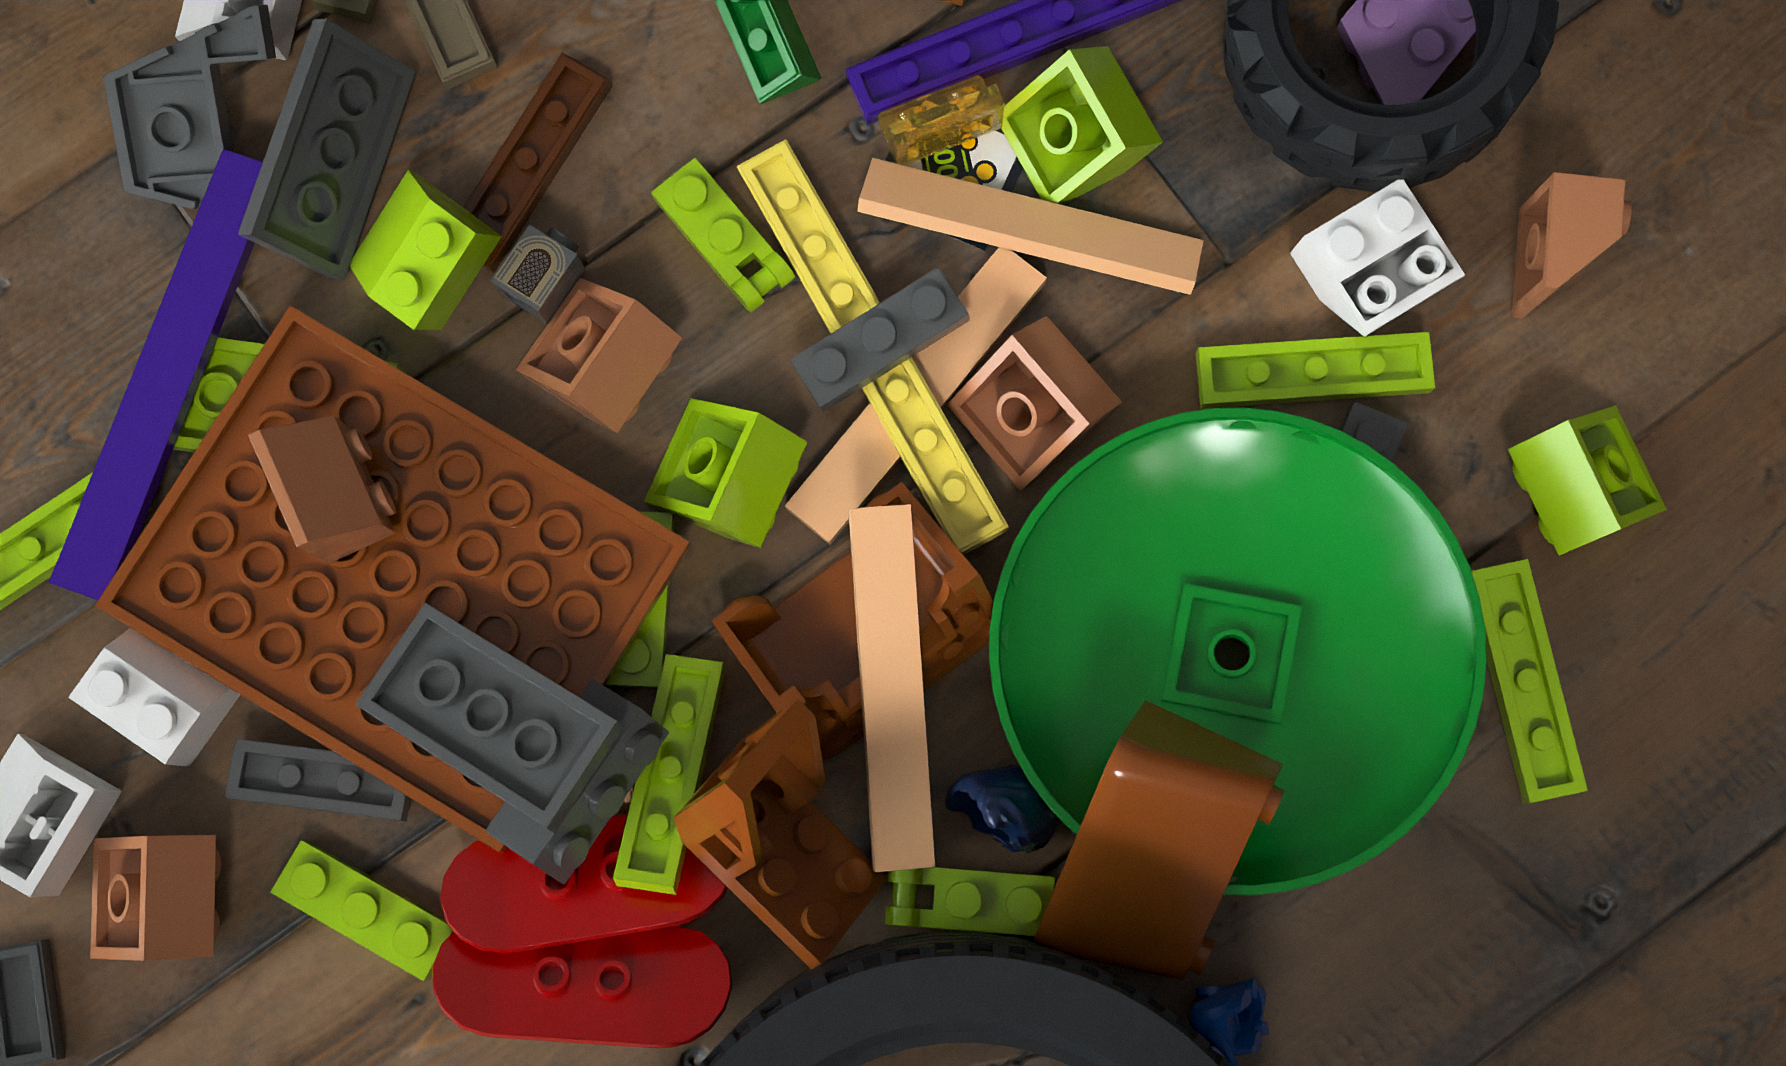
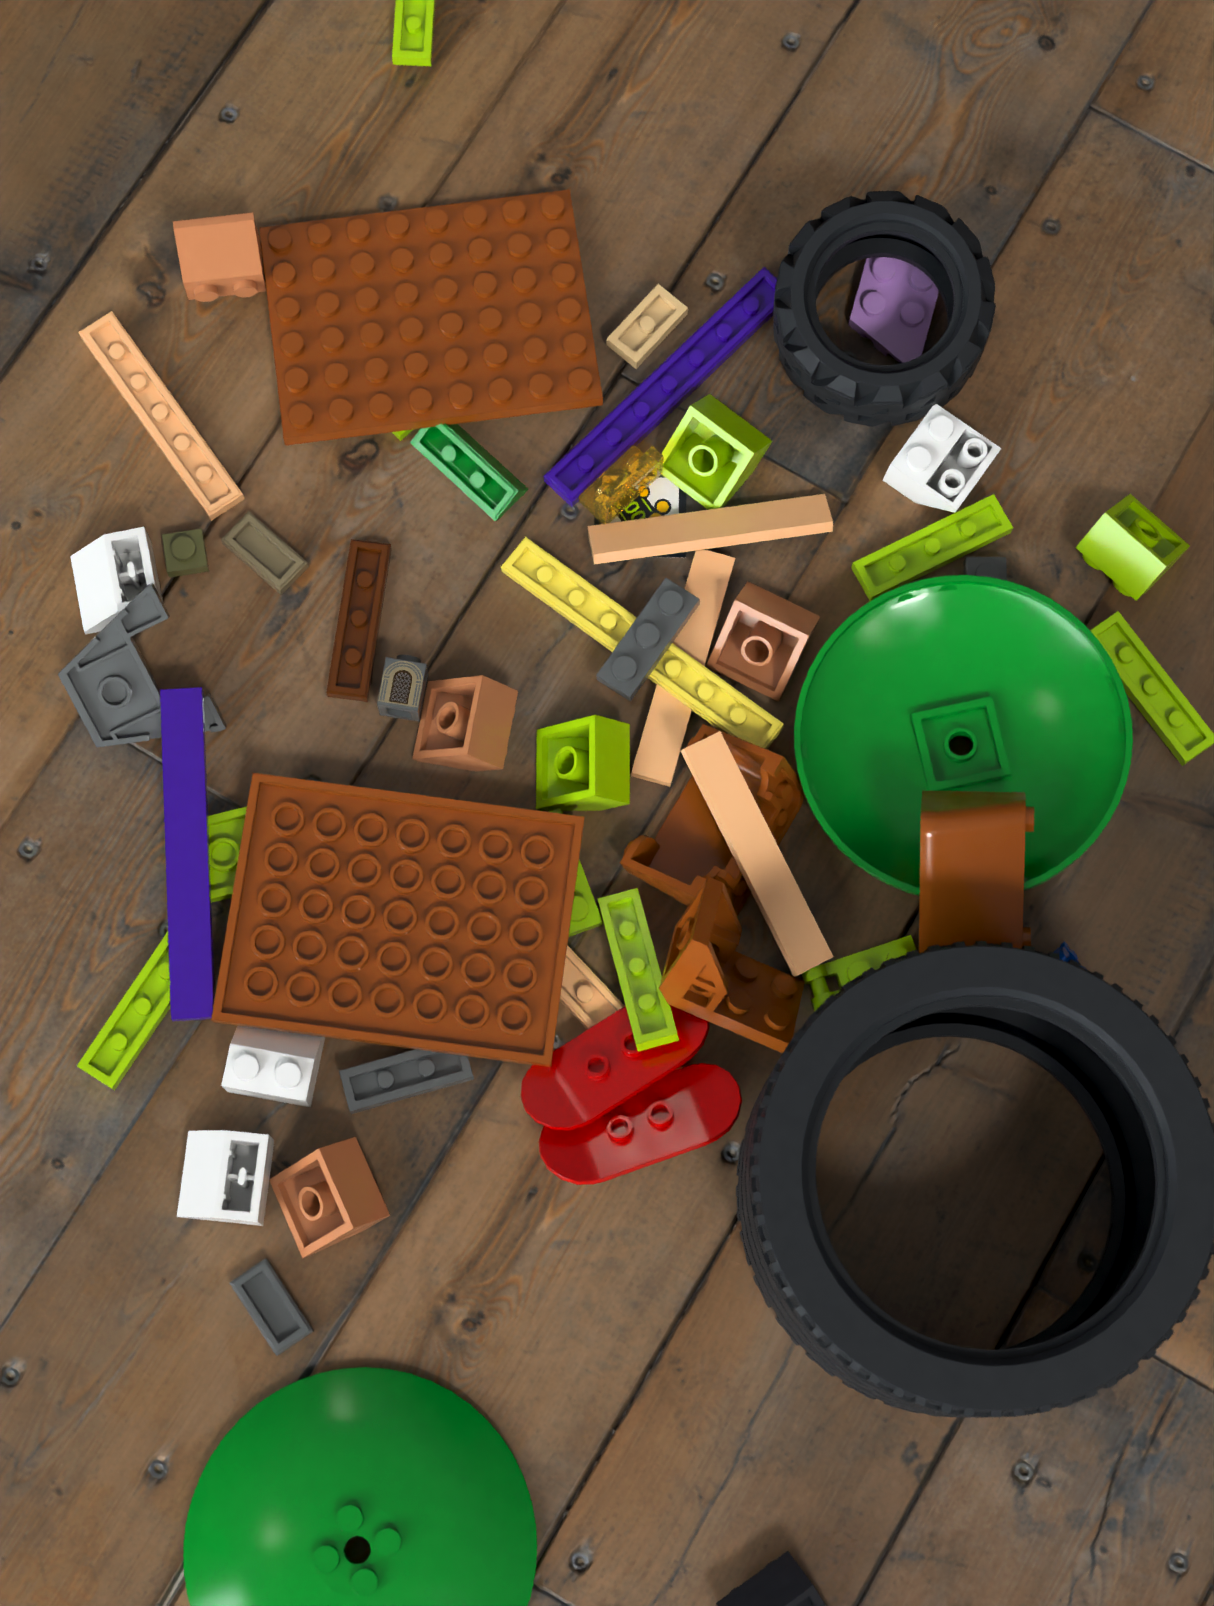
camera: 30 degrees left, 5 degrees down
(325, 486) = (339, 874): nougat slope -> none
(327, 150) = (229, 664): dark grey plate -> none
(362, 909) = (472, 1147): lime plate -> none
(422, 254) = (318, 705): lime slope -> none
(490, 716) = (512, 974): dark grey plate -> none
(601, 798) = (583, 996): dark grey brick -> none
(721, 234) = (510, 615): lime plate -> none
(1005, 807) = (860, 902): dark blue hair -> none
(1563, 232) = (1049, 398): nougat slope -> none

